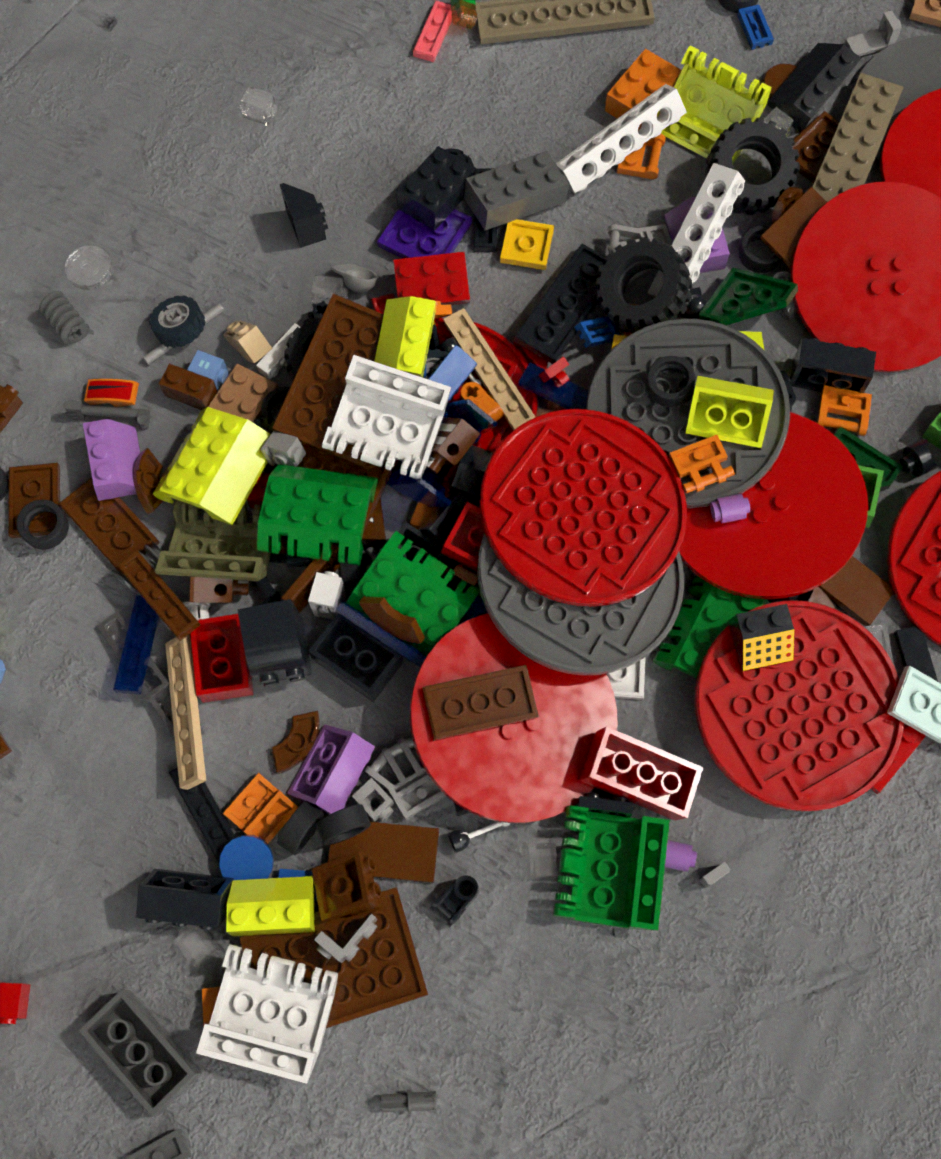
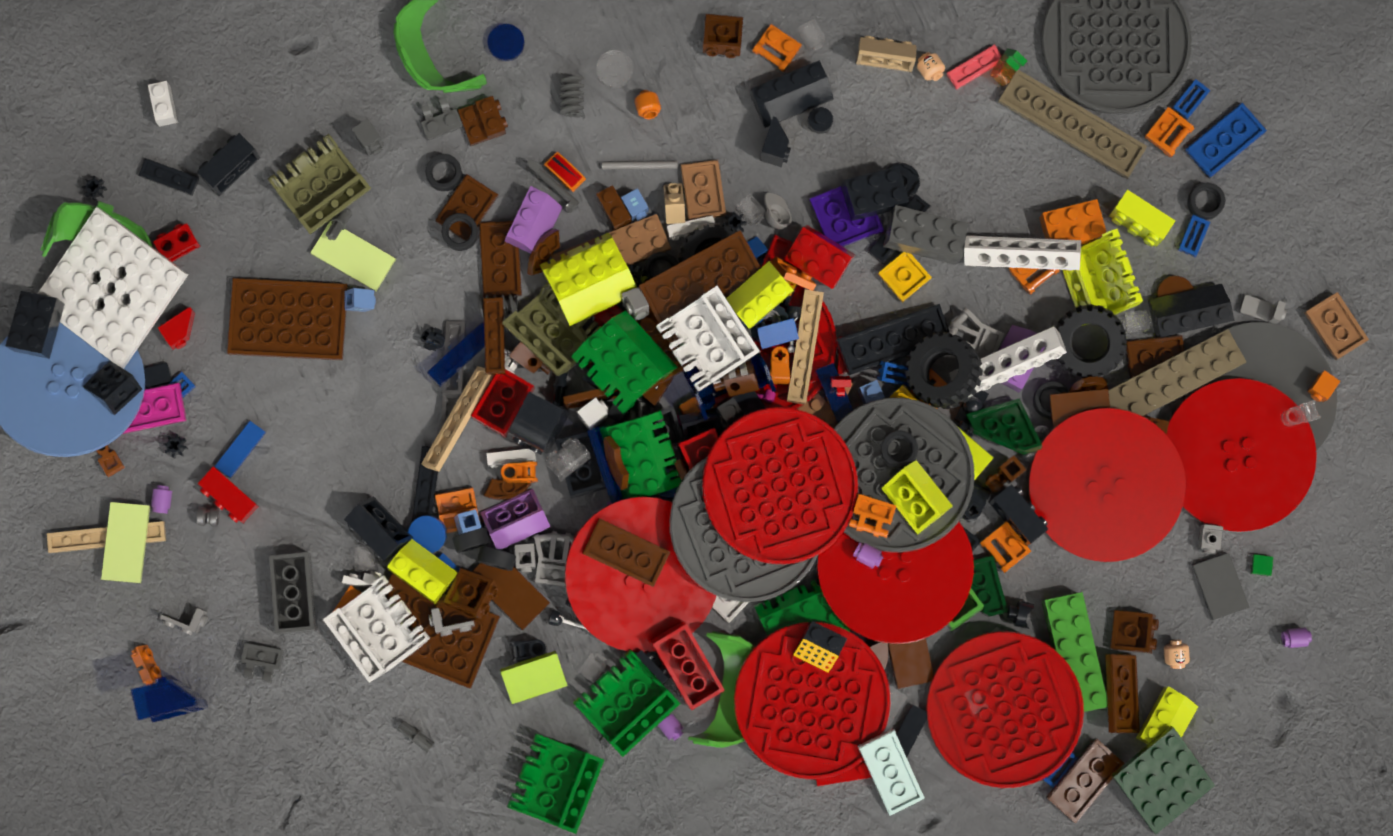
camera: 30 degrees right, 10 degrees up
(95, 652) = (432, 339): none -> black gear
(147, 272) = (647, 104): none -> orange head
(173, 163) = (722, 35): none -> reddish brown plate
(177, 321) = (640, 165): black wheel -> none
(202, 978) = (354, 580): none -> white slope
(234, 135) = (780, 43): none -> orange plate
(266, 308) = (703, 190): none -> medium nougat tile
(276, 709) = (514, 456): none -> white piece
(279, 810) = (467, 521): none -> medium blue brick
(284, 158) = (792, 93): none -> black slope
(298, 715) = (521, 472): none -> orange piece
(328, 170) = (820, 120): none -> black piece
(337, 656) = (567, 459): none -> clear slope
(344, 72) = (886, 54): none -> tan slope
(393, 54) = (930, 66): none -> light nougat head
(487, 923) = (533, 677): none -> lime tile
(492, 442) = (768, 396): none -> dark pink hand
(587, 367) = (870, 392): none -> medium blue brick
(611, 1023) = (557, 784): none -> green slope
(706, 30) = (1141, 219): none -> neon yellow brick
(715, 875) = (682, 754): light grey tile -> none
(734, 809) = (724, 728): none -> bright green piece
(784, 340) = (1006, 473): none -> reddish brown brick

